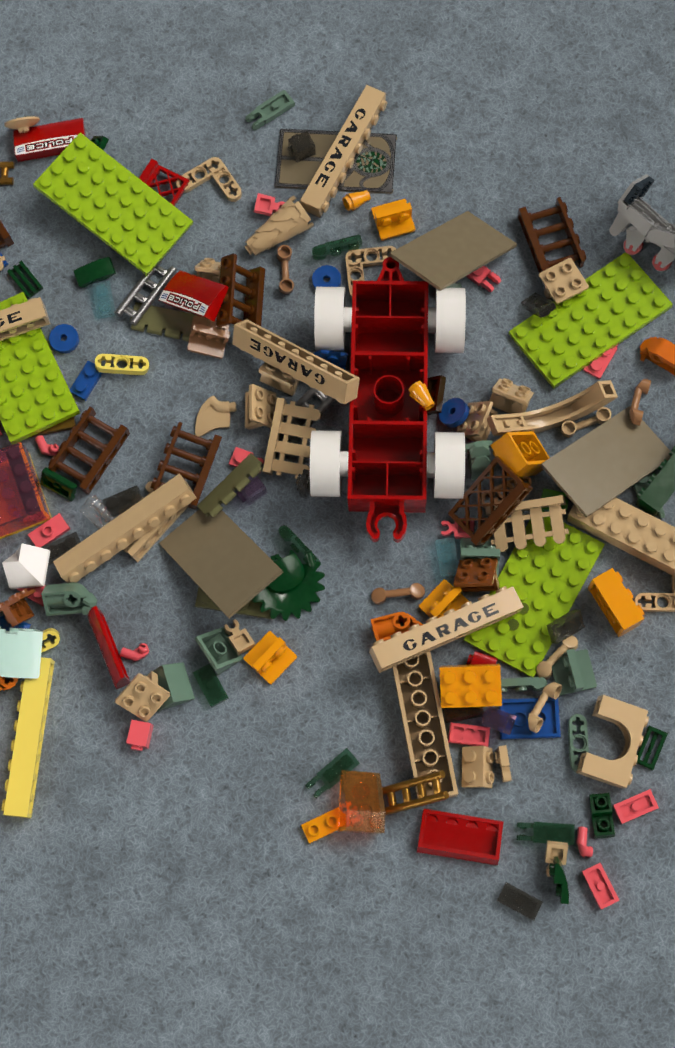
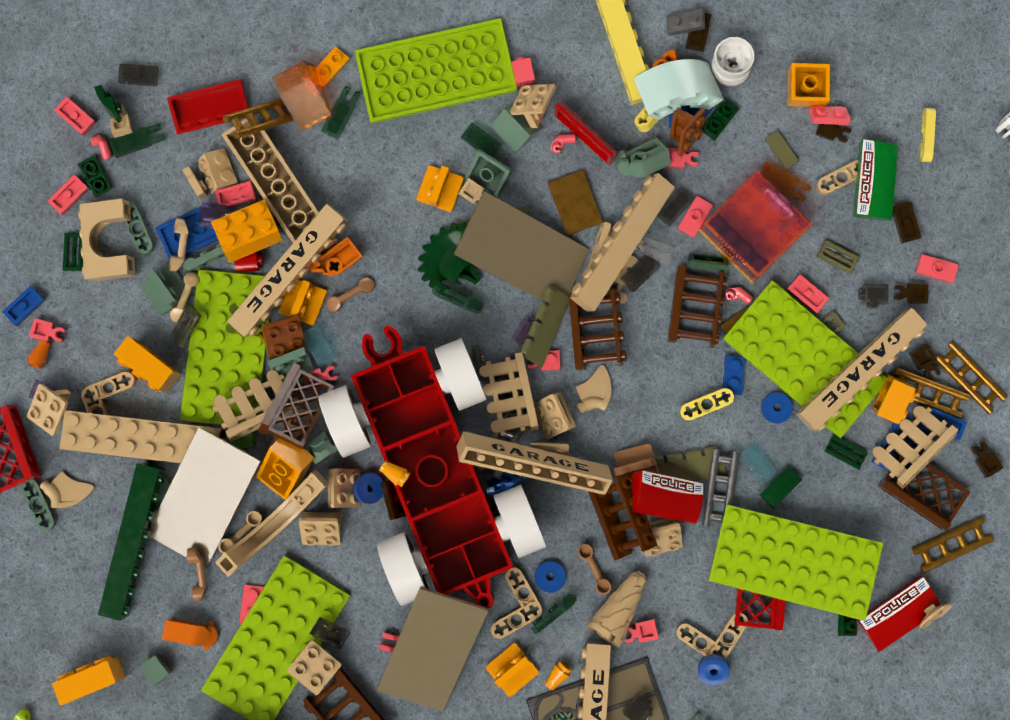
camera: 155 degrees right, 10 degrees up
(27, 567) = (696, 172): white slope -> none
(151, 591) = (575, 202): none -> pearl gold tile
(222, 774) = (435, 71): none -> lime plate
(224, 153) = (716, 677): none -> blue piece

